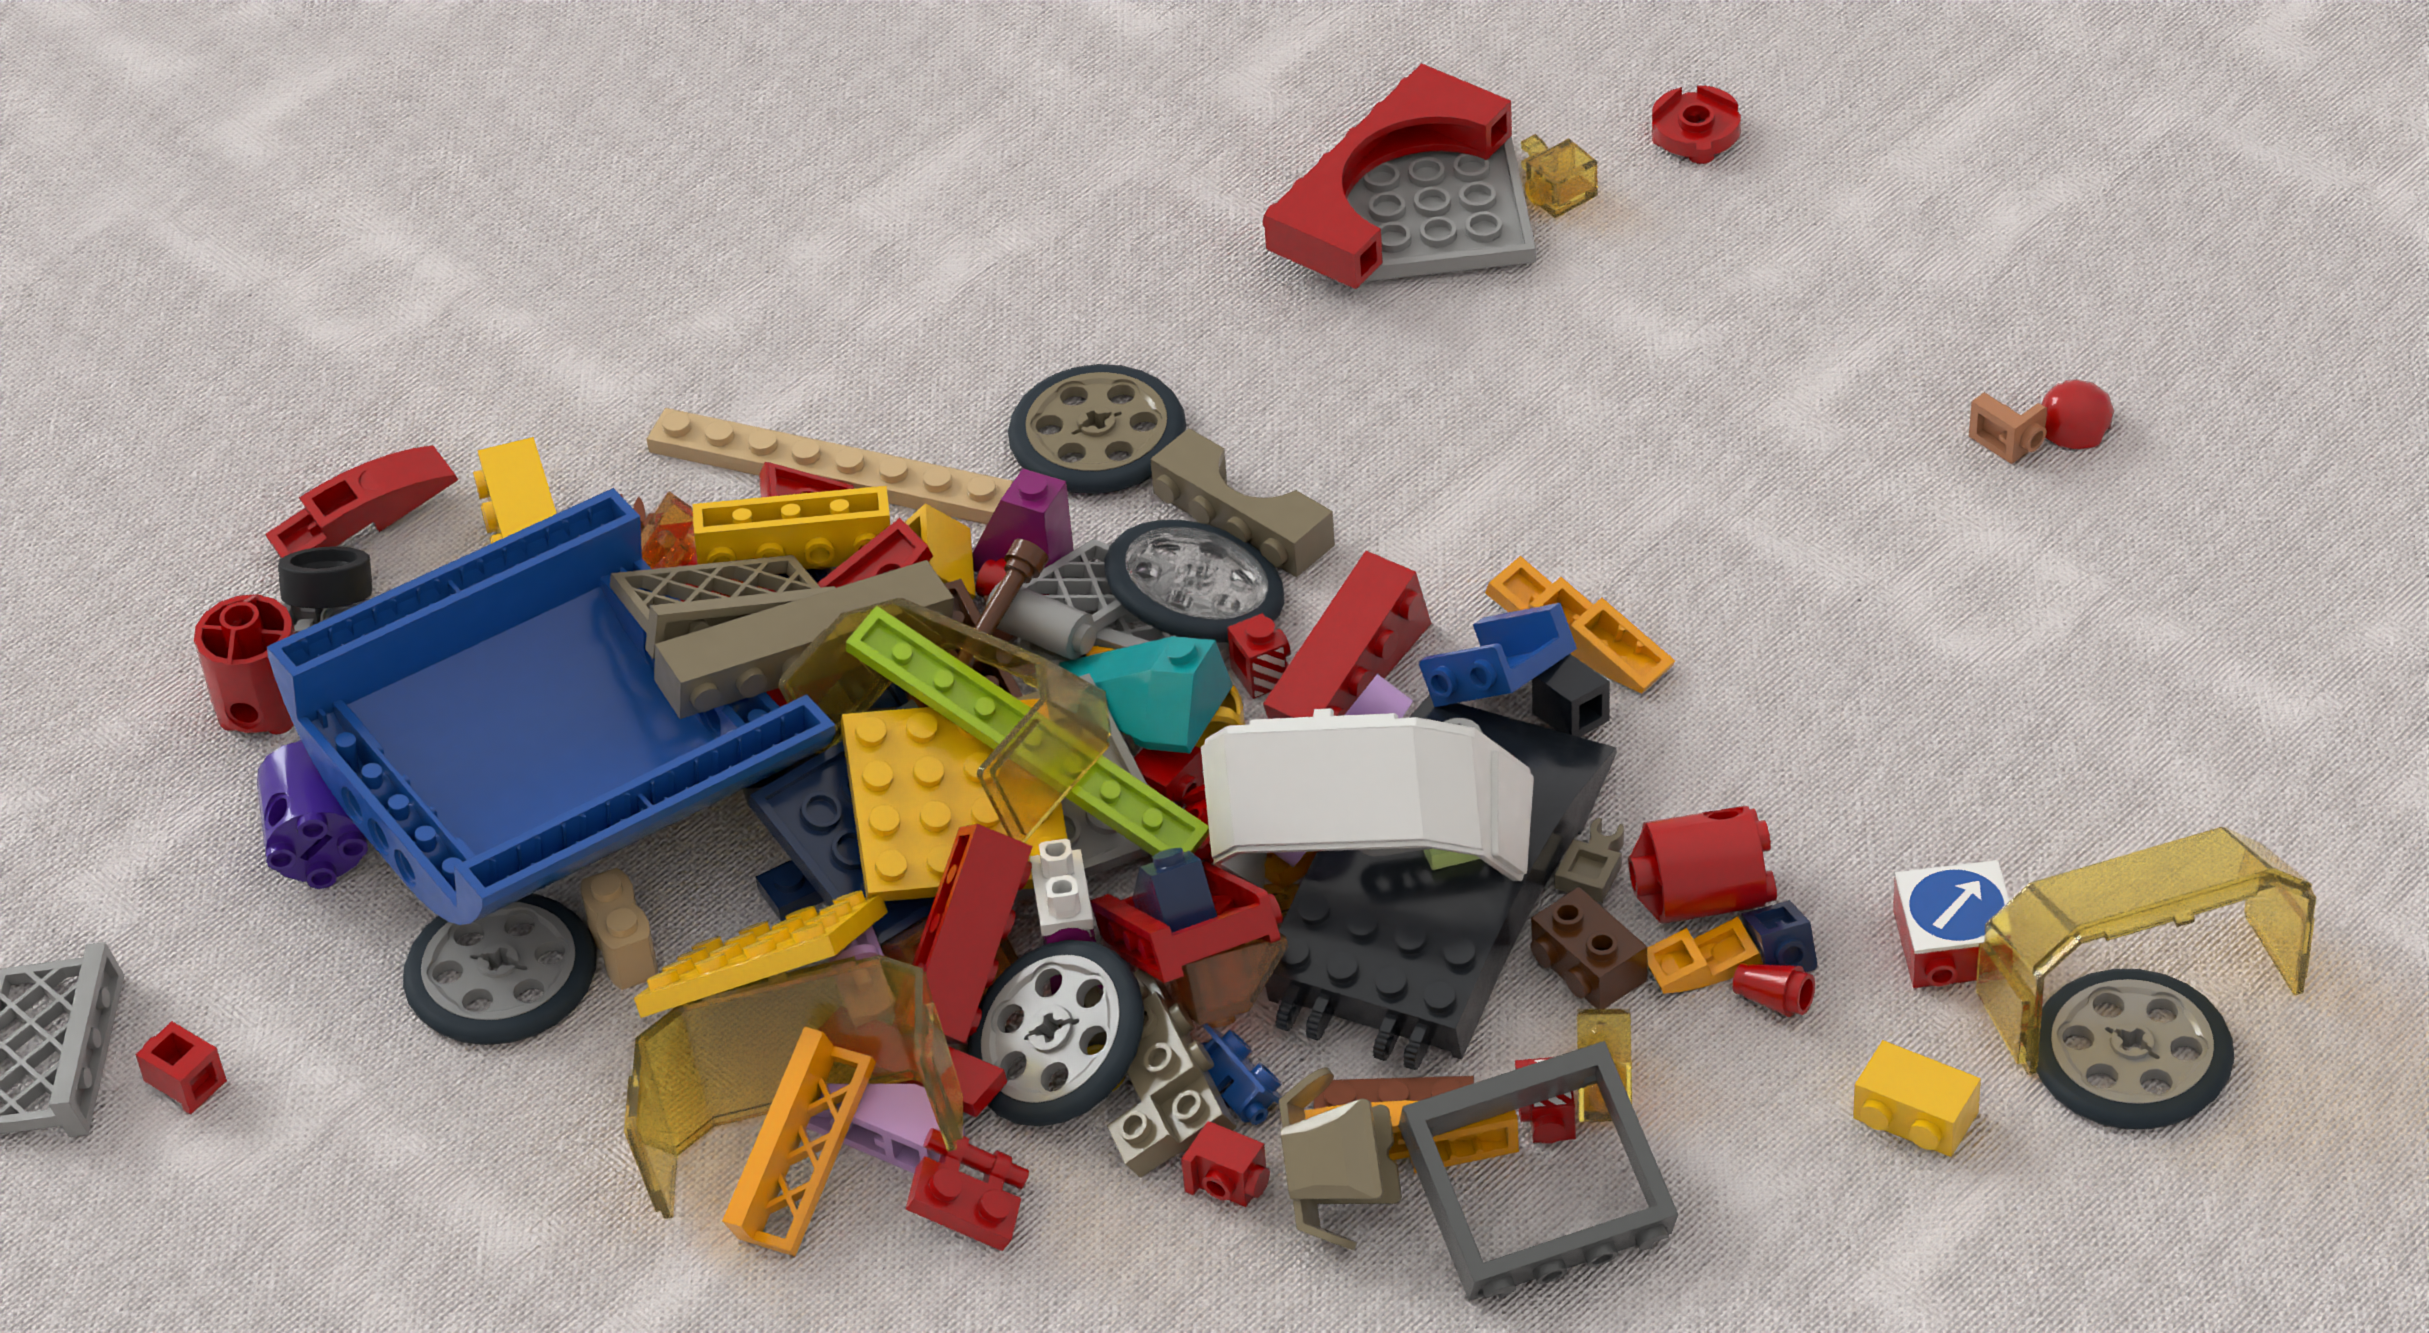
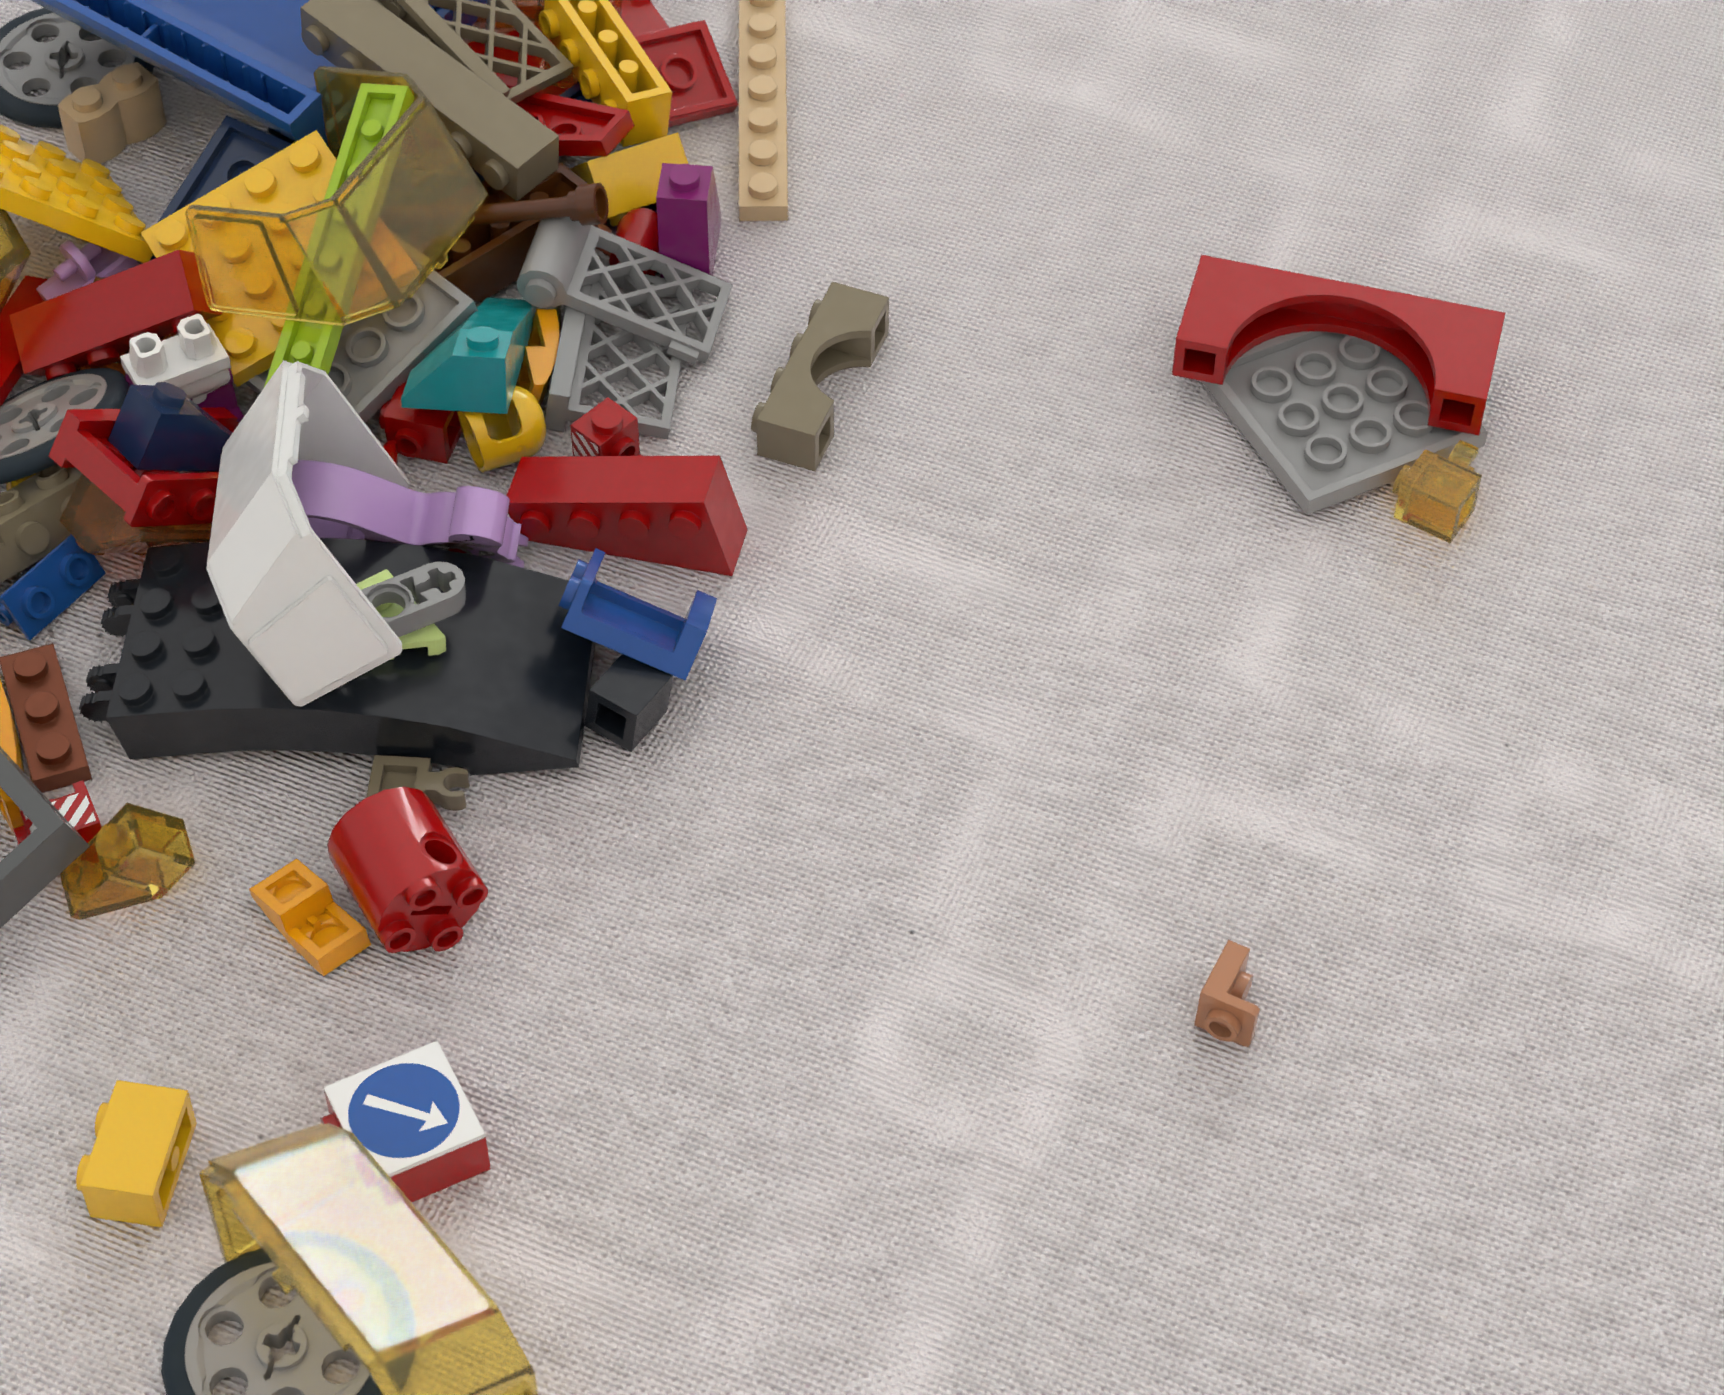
camera: 65 degrees right, 5 degrees up
(1095, 426) = (894, 243): dark tan wedge -> none
(1191, 578) = (691, 306): clear wedge -> none
(1588, 949) = (281, 811): reddish brown brick -> none
(1601, 633) = (755, 690): light orange slope -> none
(1676, 126) = (1598, 614): red plate -> none
(1777, 987) = (274, 991): red cone -> none
(1782, 935) = (347, 971): dark blue bracket -> none
(2077, 414) = (1292, 1063): red hair -> none

